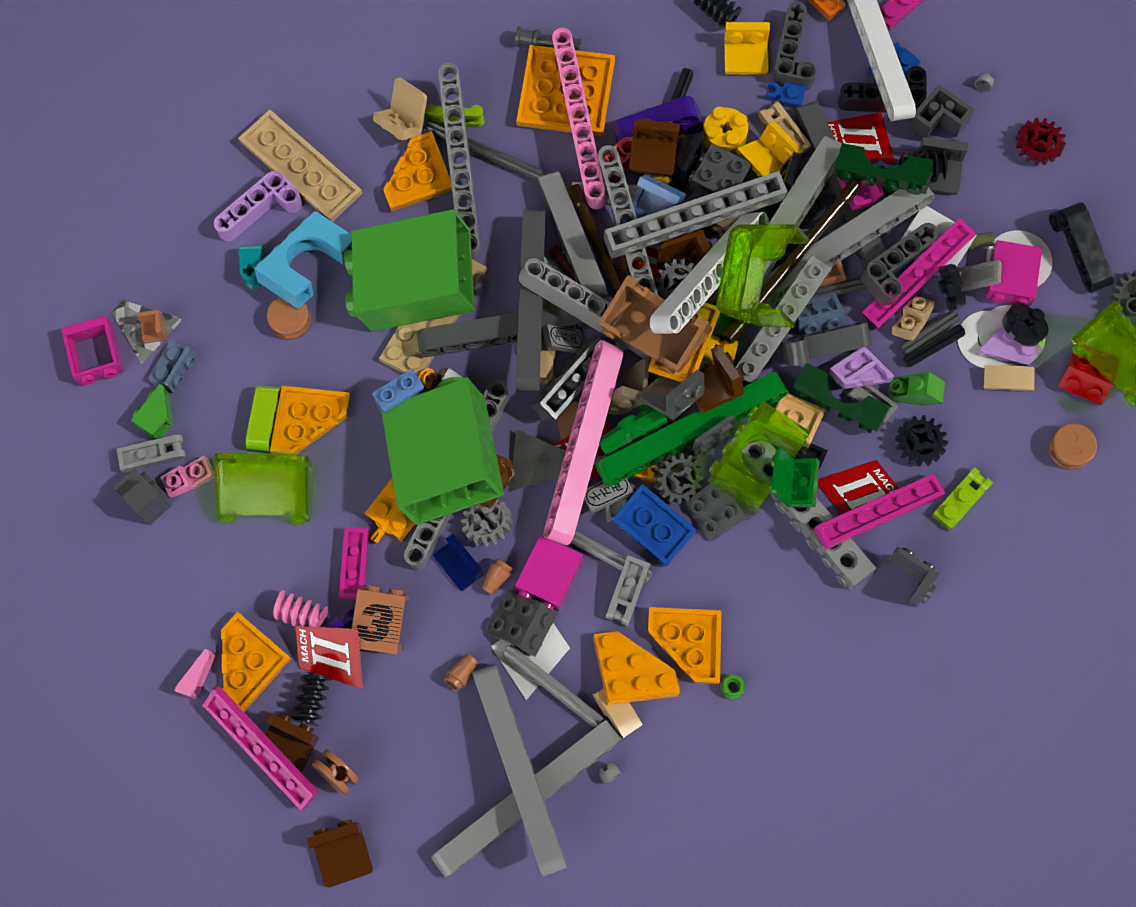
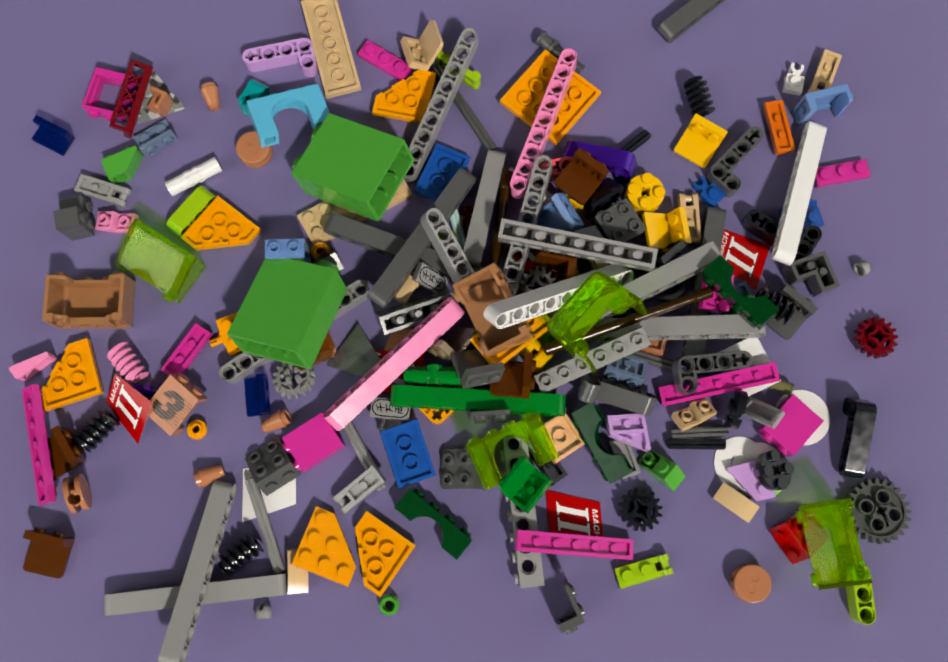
camera: 25 degrees right, 5 degrees up
(55, 429) = (52, 136): none -> clear blue panel
(127, 336) = (137, 103): none -> dark red fence
(203, 287) = (211, 95): none -> nougat cone
(219, 572) = (89, 302): none -> medium nougat windscreen
(241, 381) = (192, 177): none -> white axle
(367, 150) = (384, 61): none -> dark pink plate
(420, 641) = (202, 432): none -> light orange plate
(502, 229) = (439, 171): none -> blue plate
(546, 729) = (239, 555): none -> black piece
(679, 465) = (446, 429): dark grey gear -> none
(755, 580) = (414, 506): none -> dark green arch

